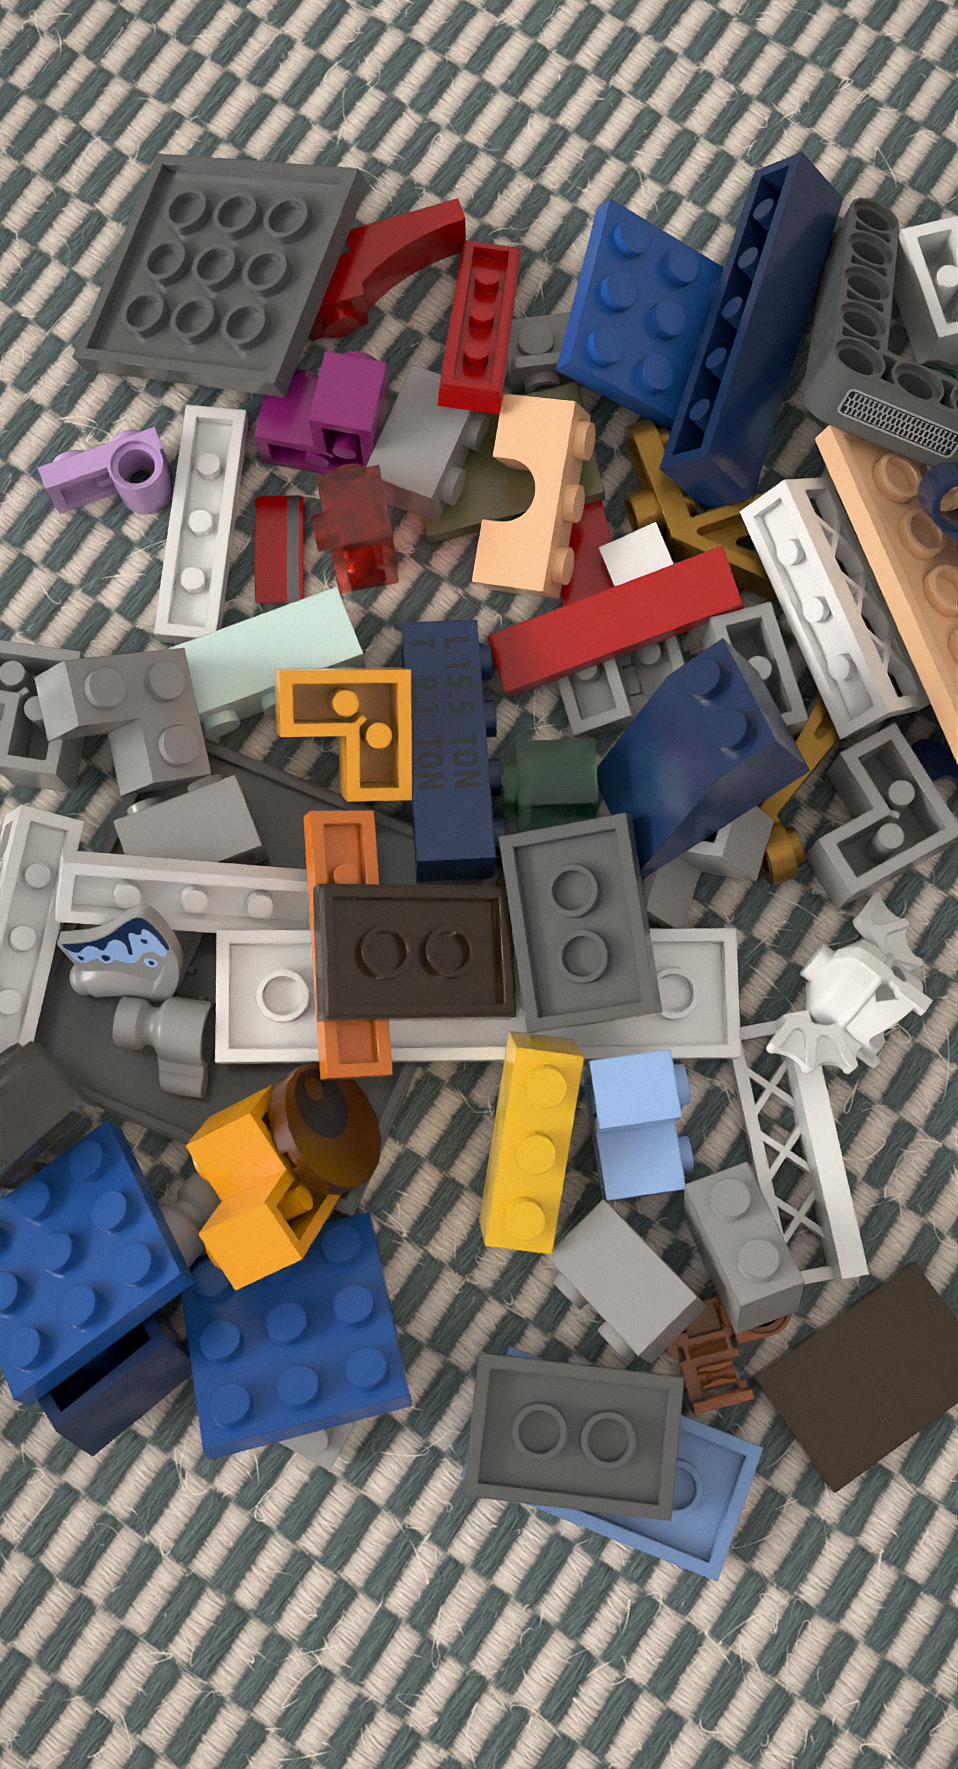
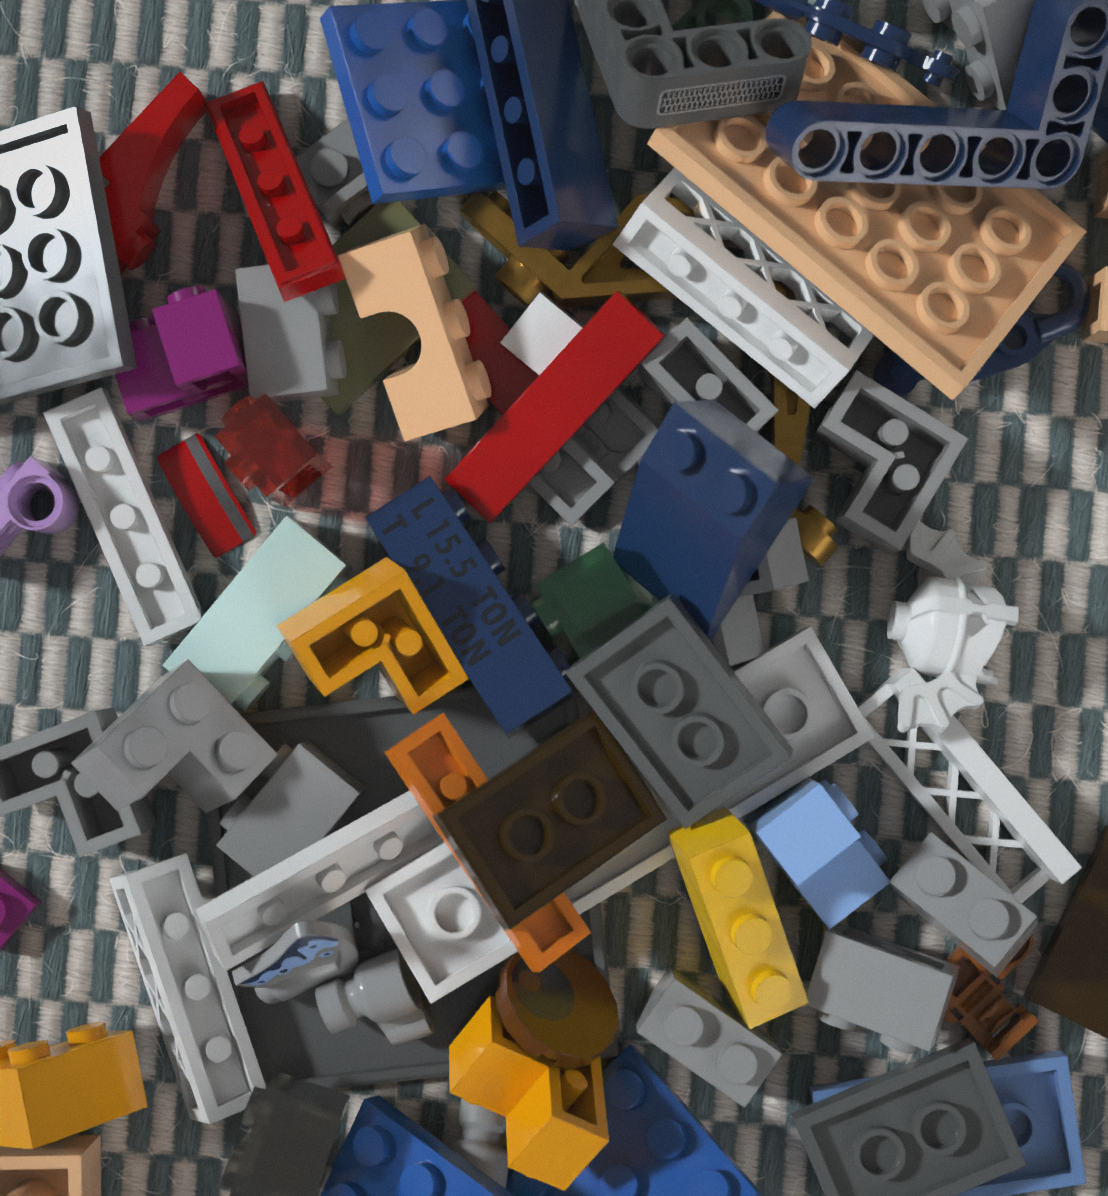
camera: 25 degrees left, 10 degrees up
(442, 1239) = (707, 1036): none -> light grey brick

